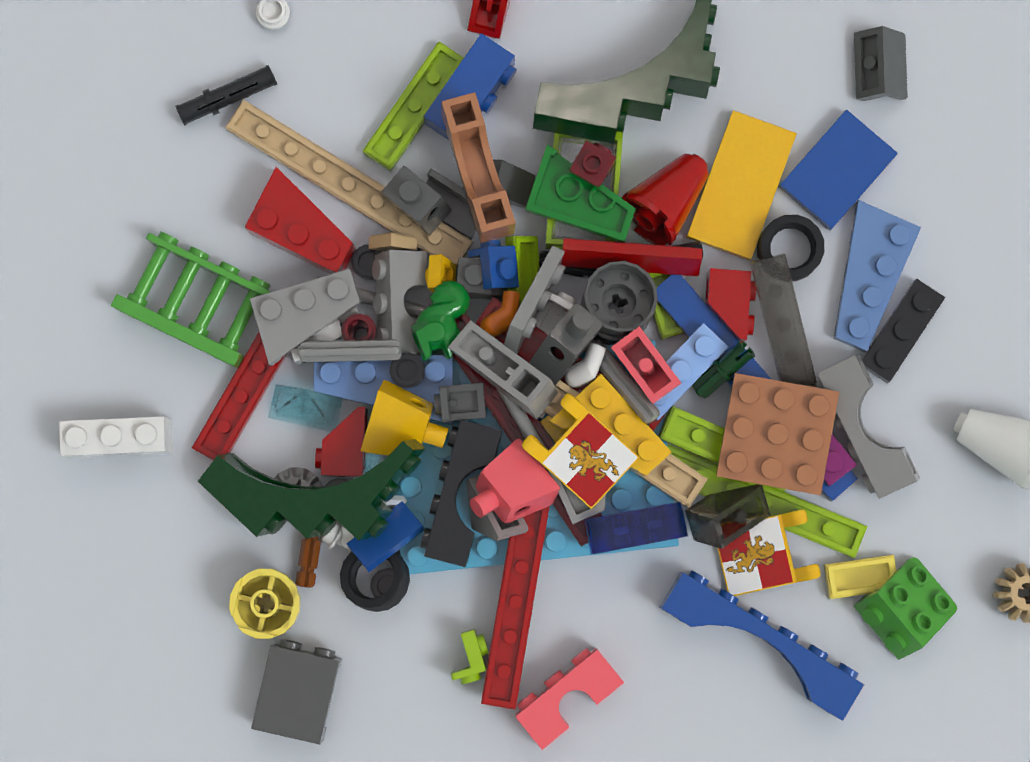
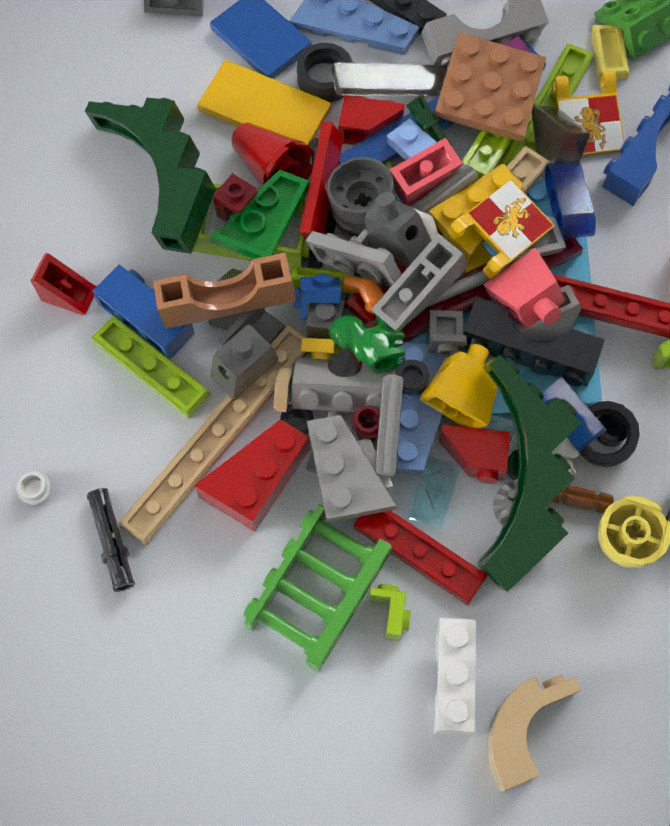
camera: 85 degrees left, 15 degrees down
(56, 490) = (507, 736): none -> tan arch
(170, 379) = (398, 617): none -> lime bracket

